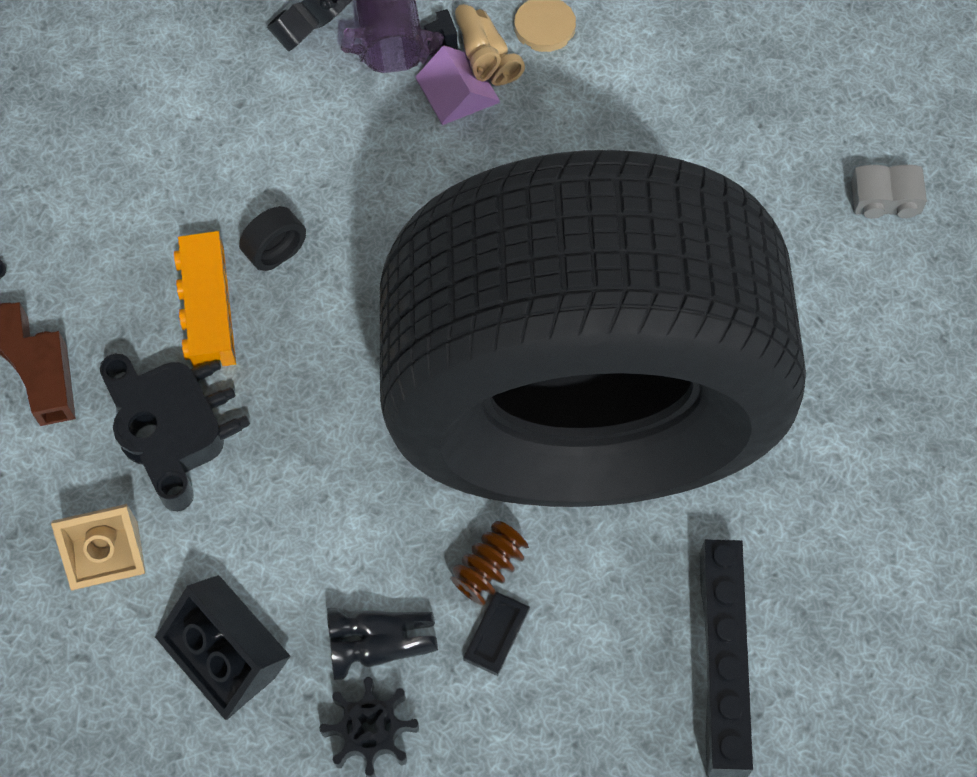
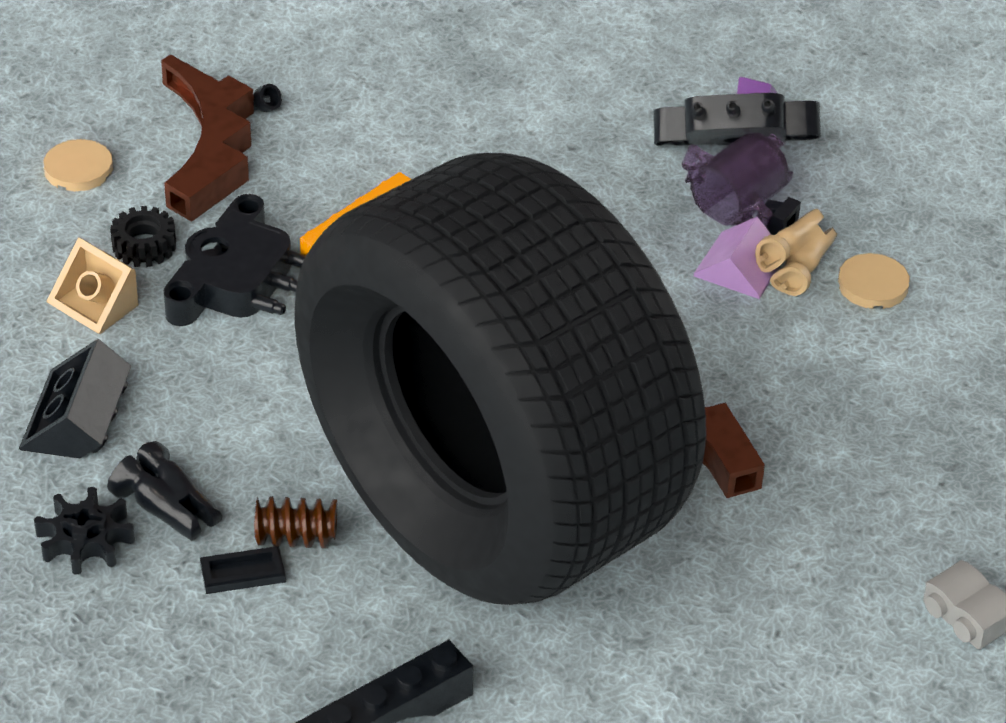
camera: 50 degrees right, 20 degrees down
(54, 454) = (147, 249): none -> black tyre

